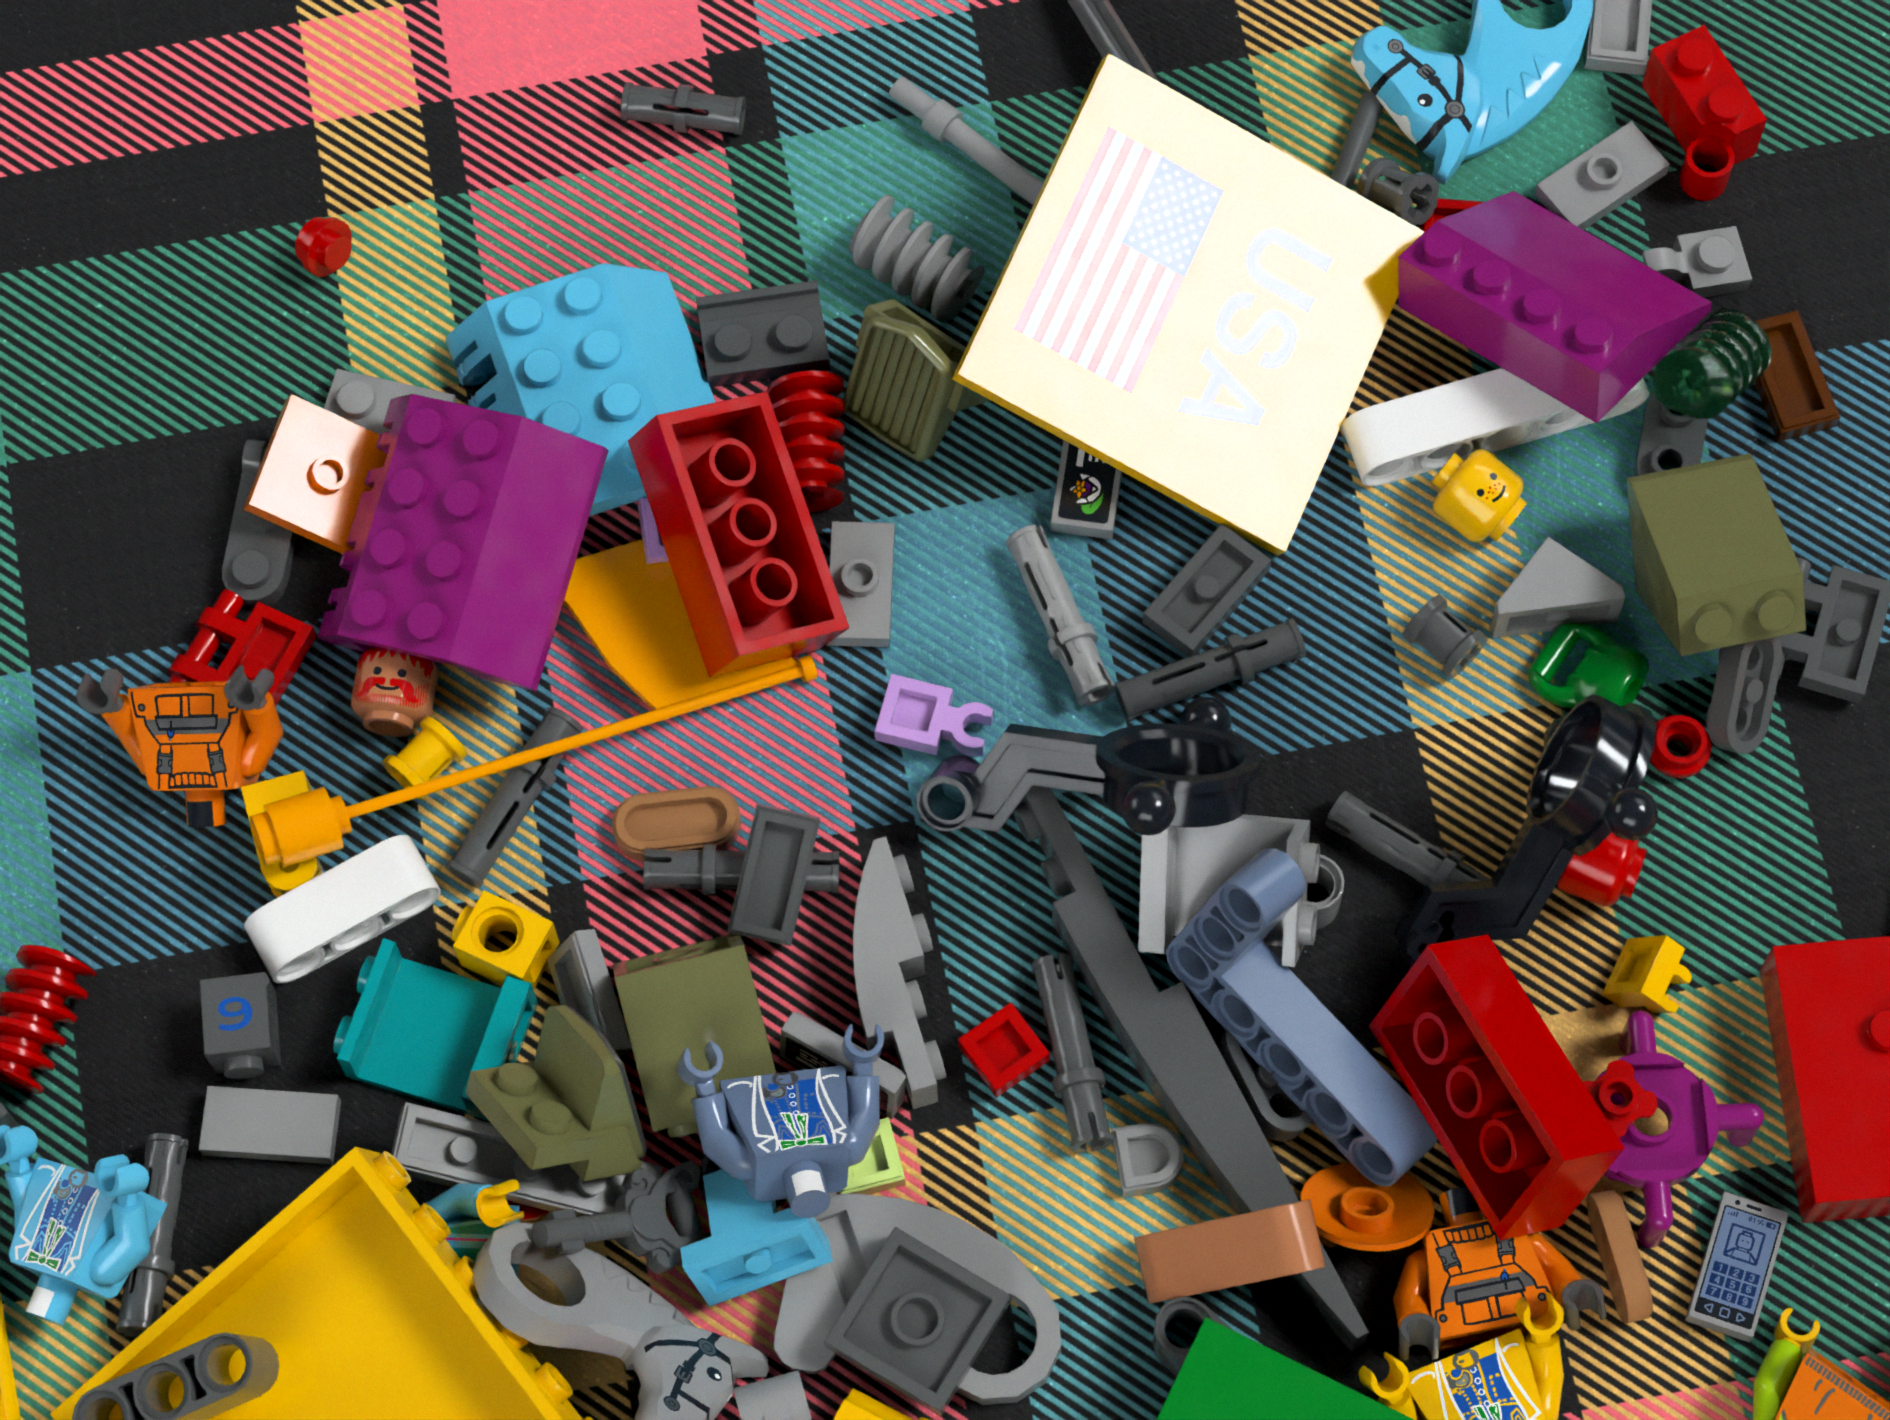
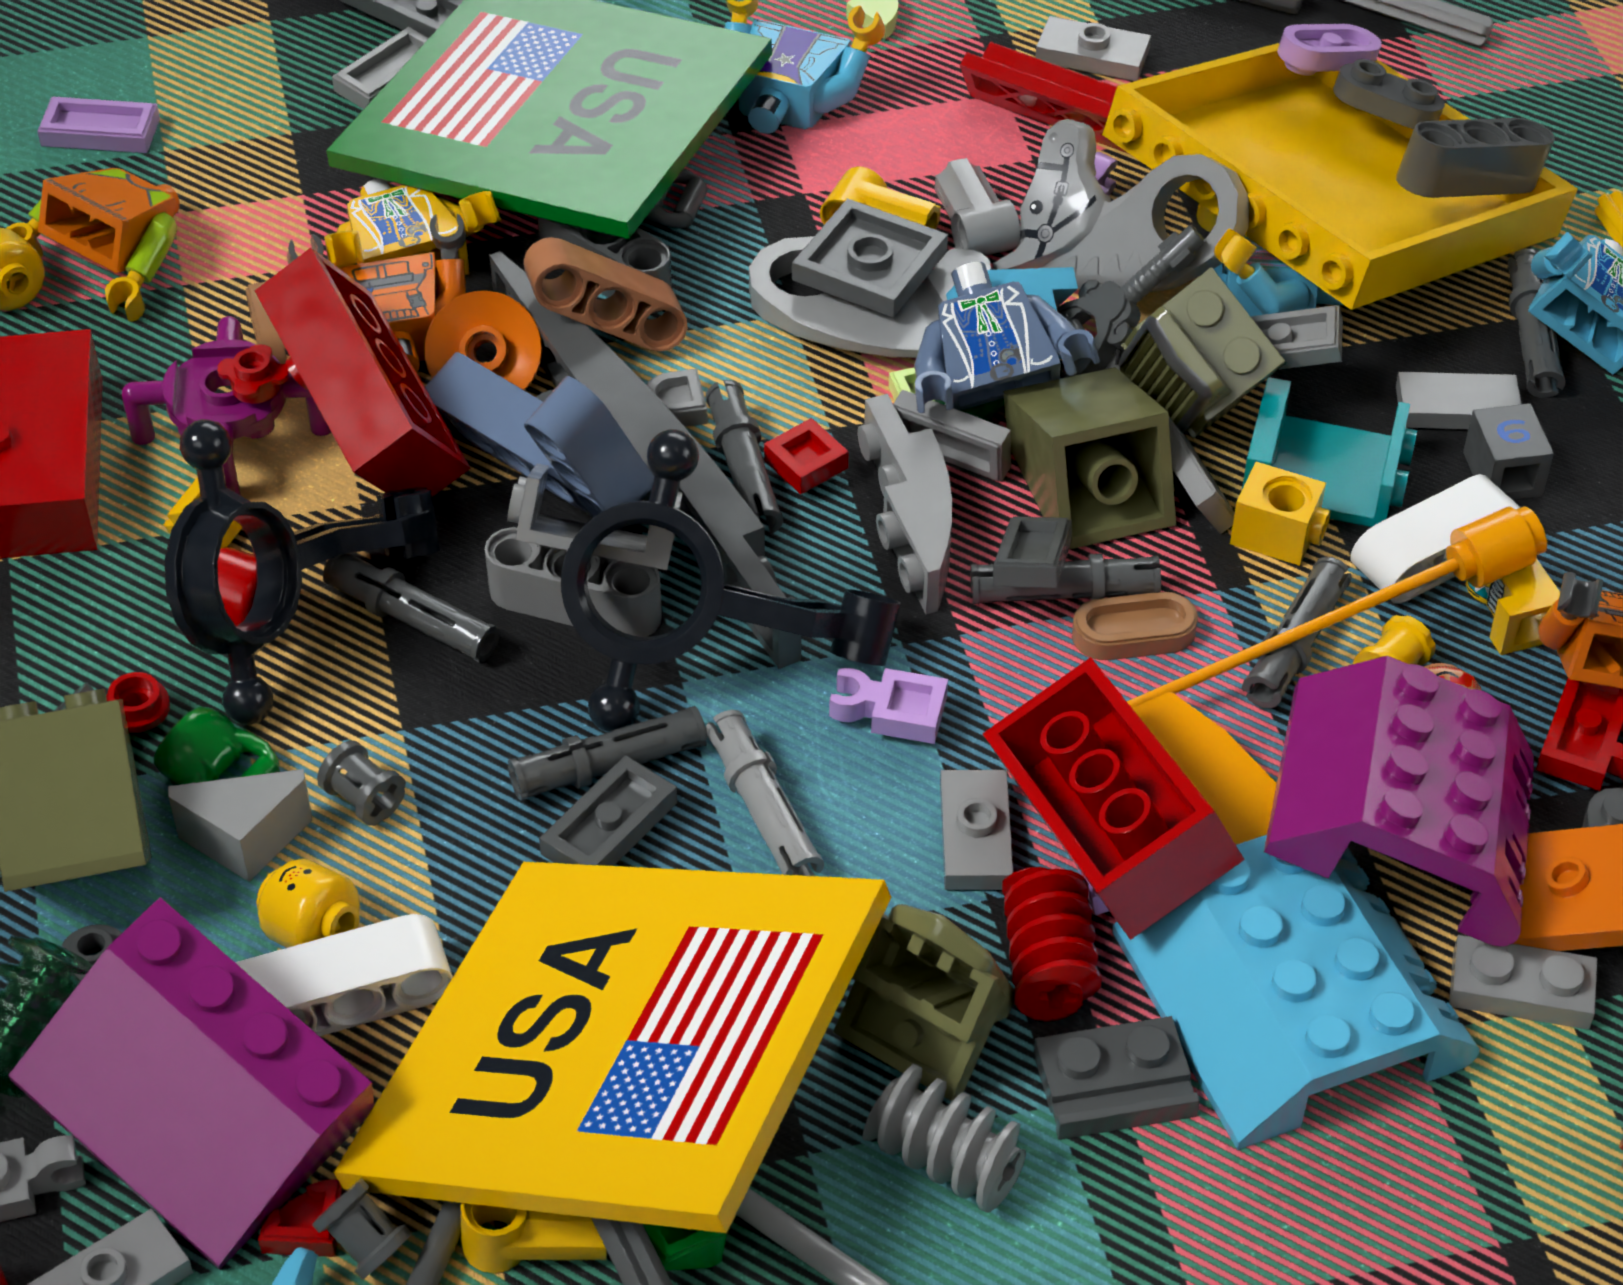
camera: 175 degrees right, 20 degrees down
(1736, 1267) = (165, 335): tile -> none

